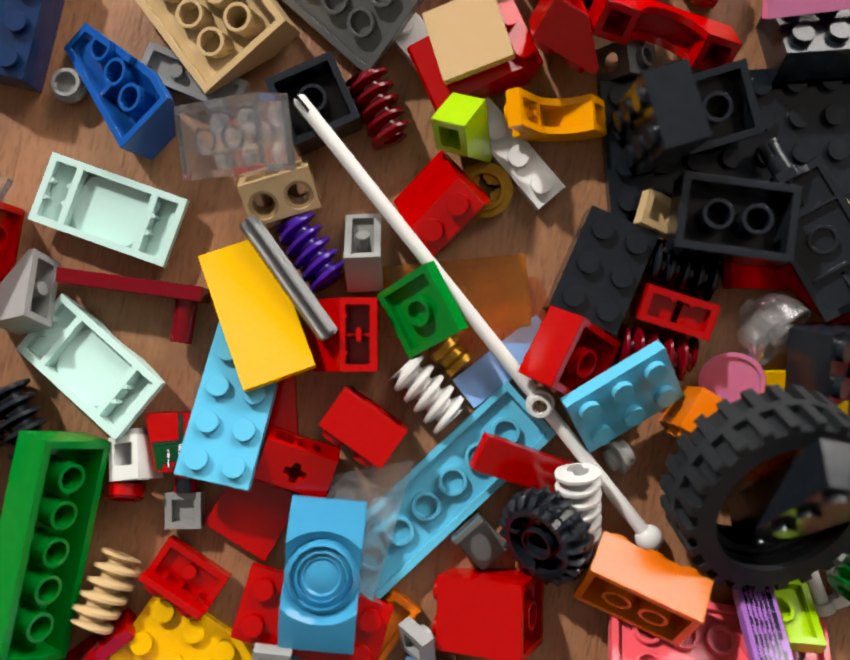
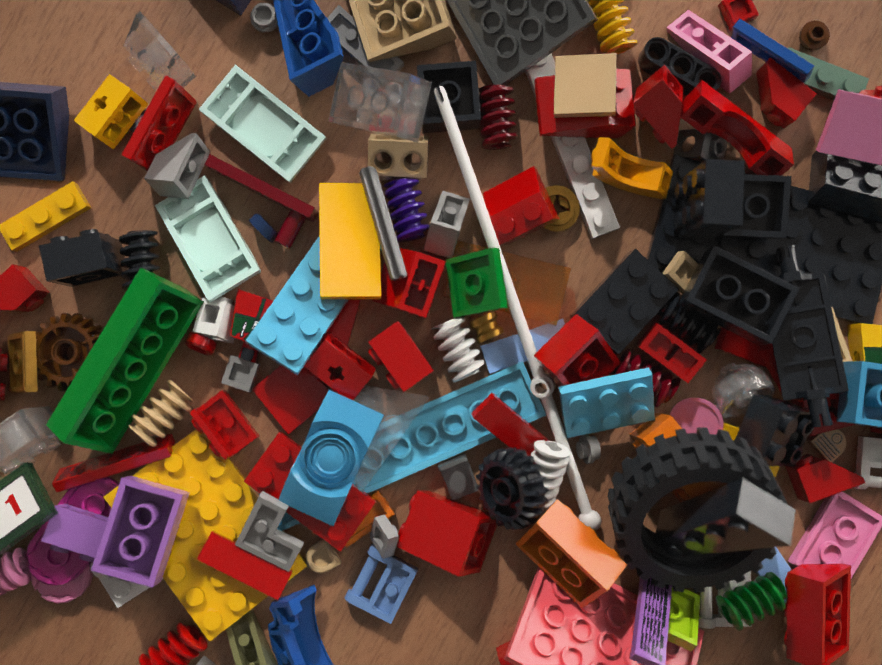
camera: 20 degrees right, 0 degrees up
(151, 330) = (263, 227): none -> dark blue tile
(462, 127) = (556, 154): lime slope -> none

